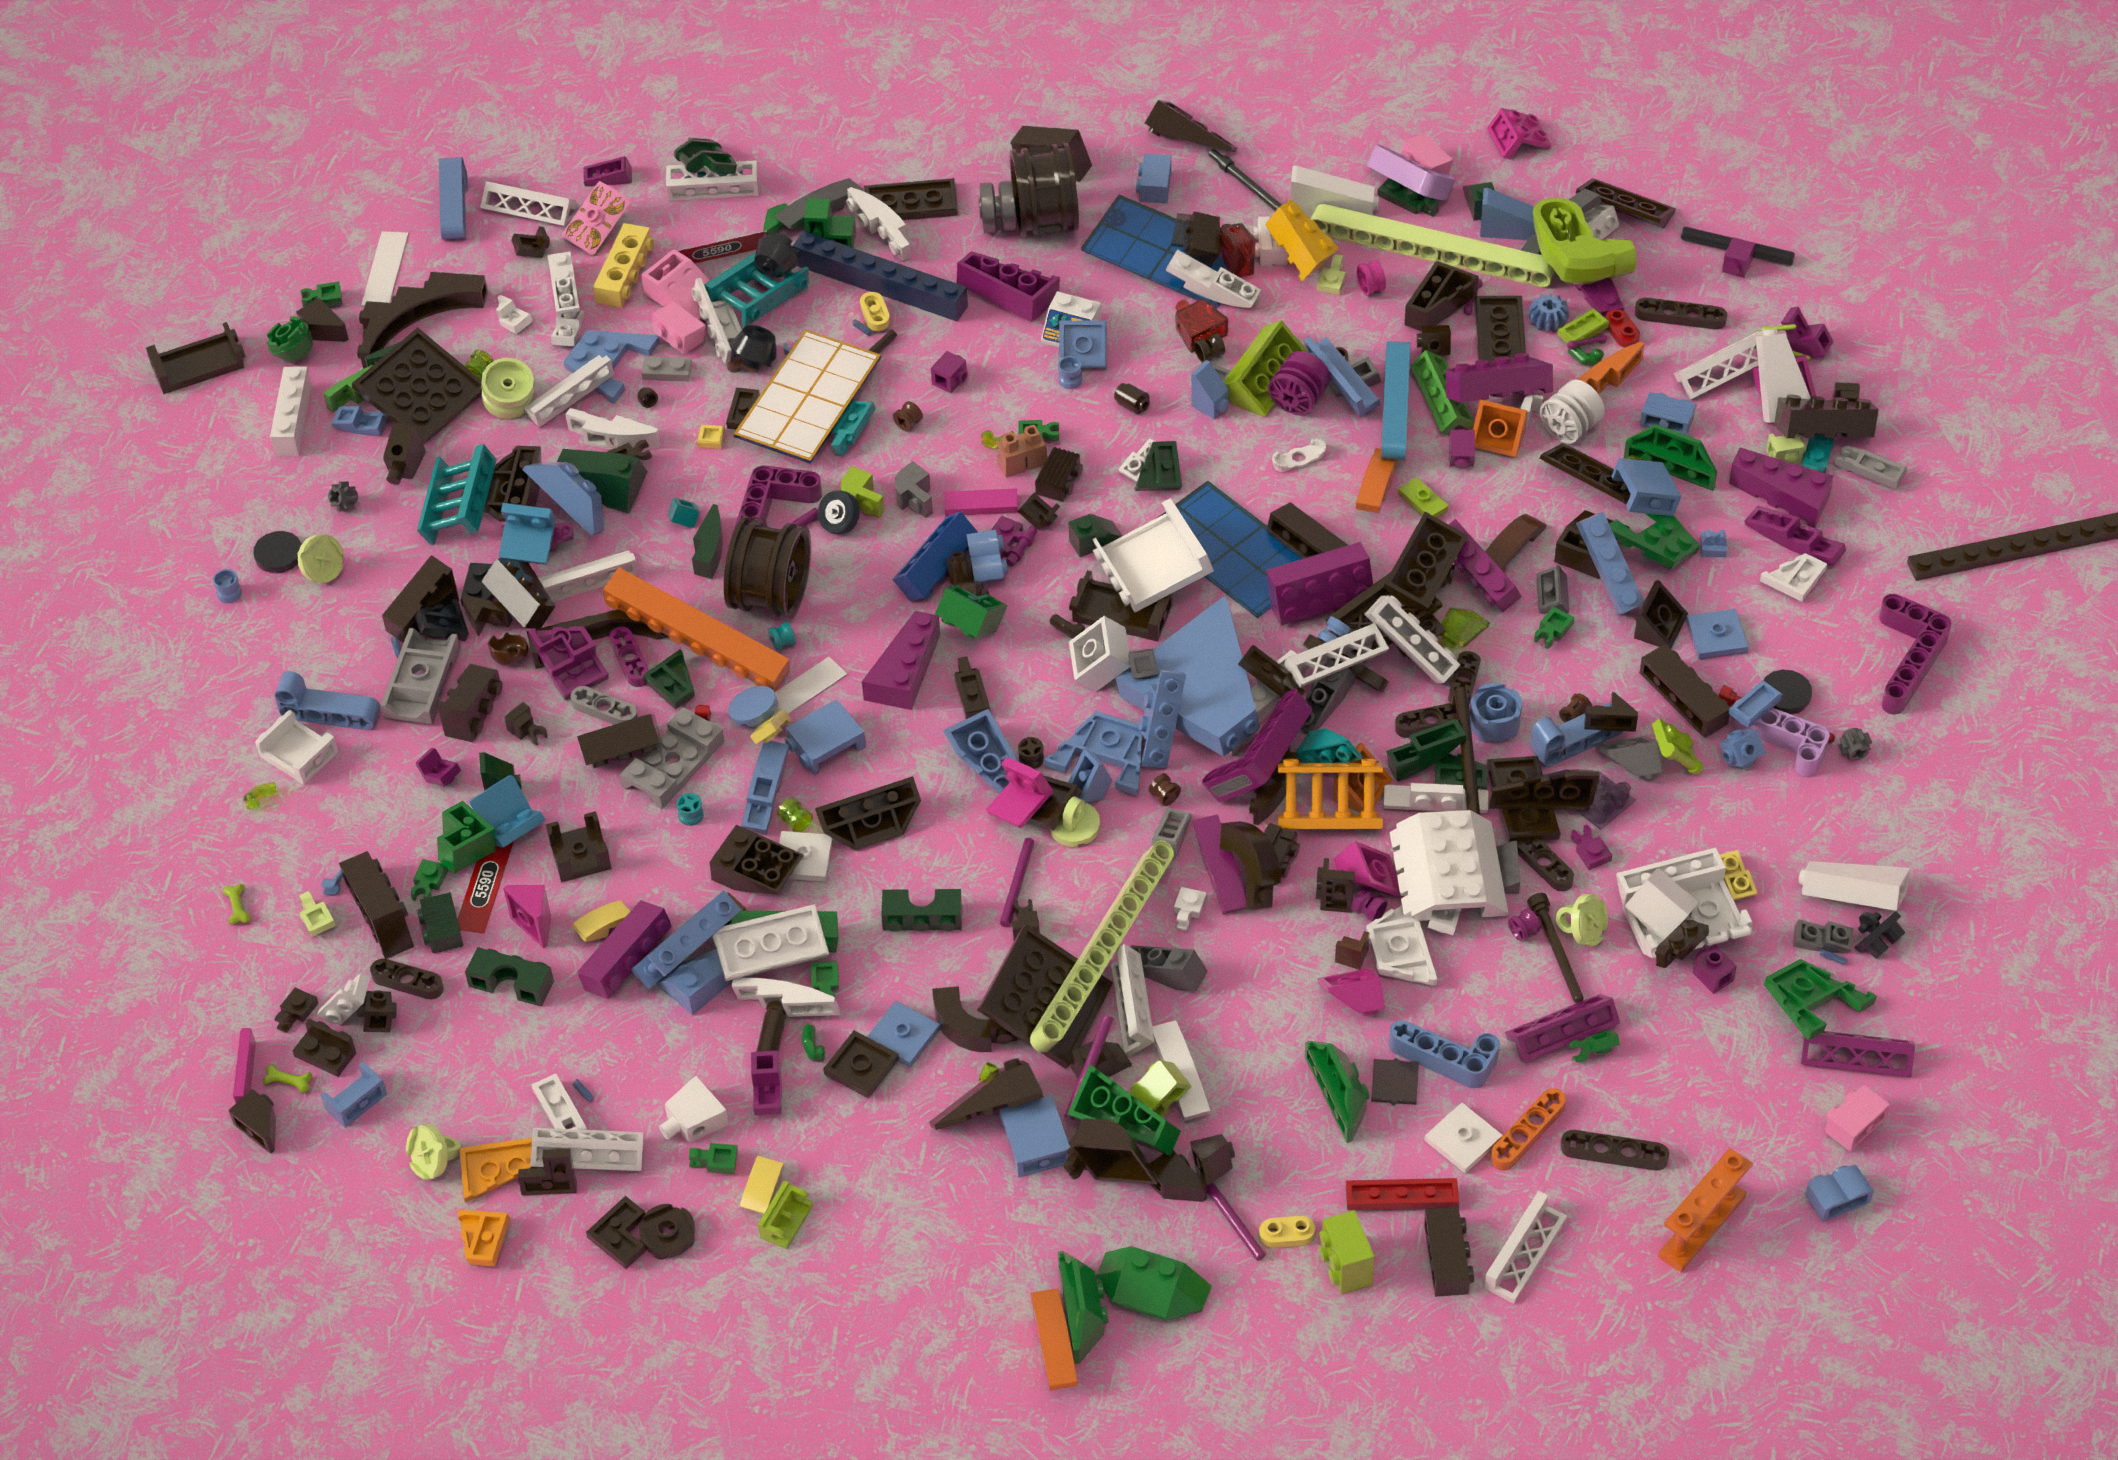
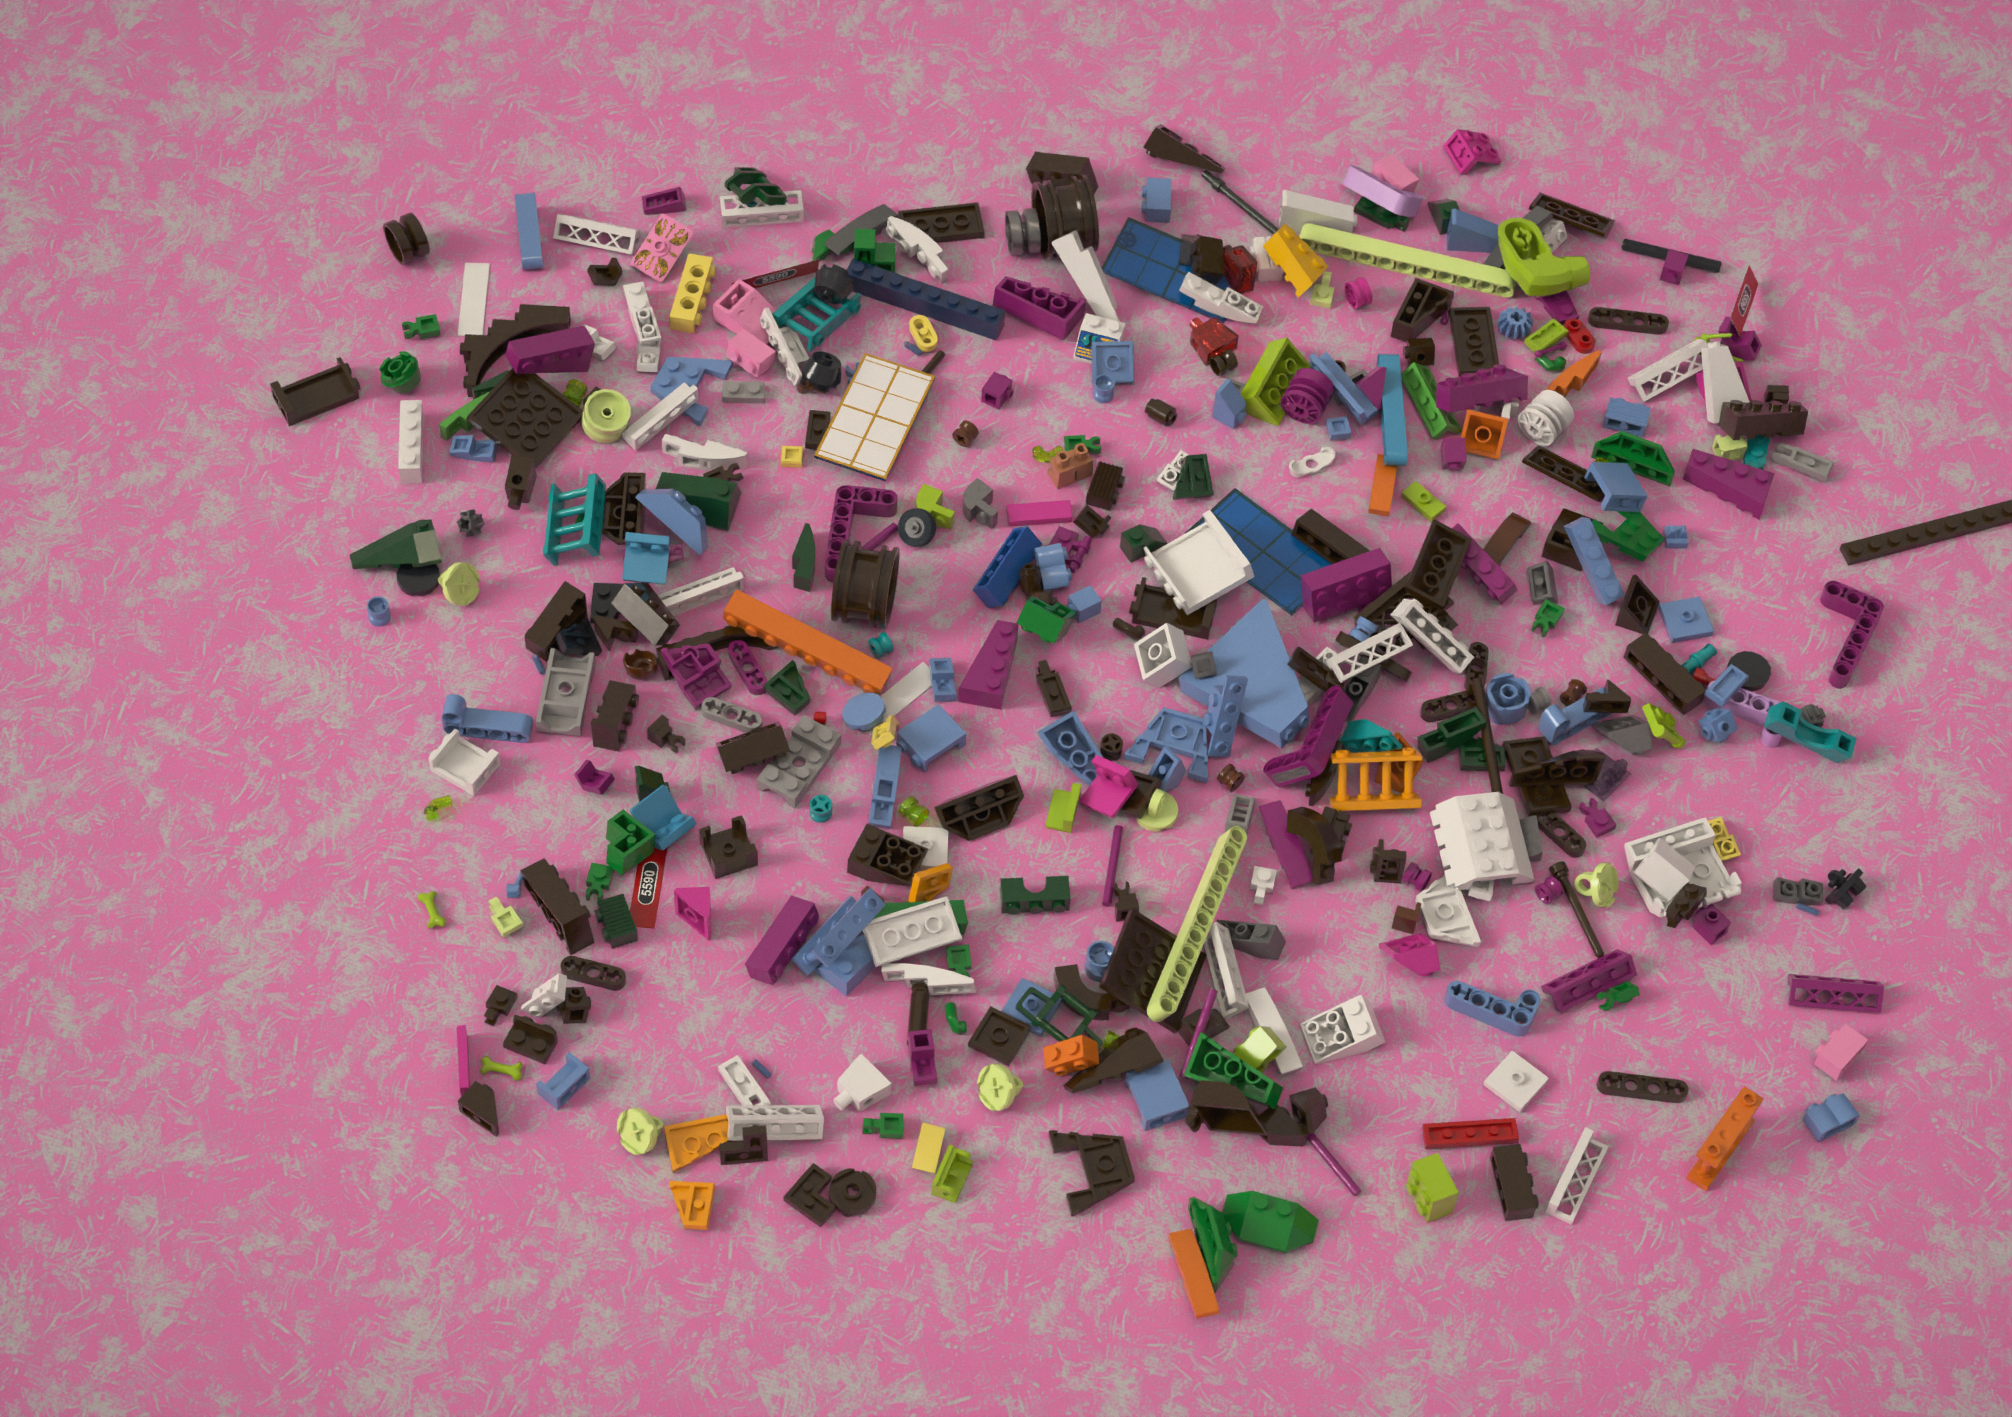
camera: 10 degrees left, 5 degrees up
(274, 516) = (408, 545): none -> dark green wedge
(317, 203) = (406, 238): none -> dark brown wheel
(323, 322) = (428, 354): dark brown slope -> none
(455, 319) = (552, 352): none -> magenta wedge
(491, 967) = (668, 960): dark green arch -> none
(599, 921) = (755, 916): light yellow slope -> none
(649, 395) = (730, 420): dark brown hinge -> none
(683, 512) = (777, 530): teal slope -> none
(802, 891) = (930, 882): none -> light orange wing
(847, 675) = (942, 679): none -> medium blue slope
(851, 425) = (916, 443): teal hinge -> none
(851, 1119) = (998, 1087): none -> yellowish green tile
(938, 1086) = (1071, 1055): none -> orange brick
(939, 1074) = (1050, 1002): none -> dark green bar
(964, 1211) = (1103, 1162): none -> dark brown wing
(968, 818) = (1063, 809): none -> lime panel
(981, 977) = (1097, 959): none -> medium blue wheel
(1020, 598) = (1085, 603): none -> medium blue brick
(1062, 249) = (1087, 274): none -> white wedge
(1264, 1073) = (1343, 1031): none -> white slope
(1287, 1232) = (1378, 1171): light yellow plate -> none
(1333, 419) = (1338, 428): none -> medium blue plate
(1339, 1085) = (1407, 1038): green wedge -> none
(1370, 867) = (1415, 842): dark pink slope -> none
(1375, 374) = (1373, 385): none -> magenta slope
(1395, 1081) = (1453, 1033): clear smoke piece -> none
(1430, 797) = (1457, 778): white bracket -> none
(1462, 627) = (1470, 620): clear neon green slope -> none
(1527, 1128) = (1569, 1071): orange beam -> none
(1531, 715) = (1538, 700): none -> light grey wheel
(1729, 675) = (1698, 659): none -> teal pin
(1789, 533) = (1739, 525): magenta slope -> none
(1796, 576) = (1748, 565): white wing -> none
(1805, 987) = (1788, 938): green wing -> none
(1816, 292) = (1744, 300): none -> red sticker
(1856, 883) = (1823, 844): white slope -> none
(1872, 771) = (1829, 743): none -> teal arch

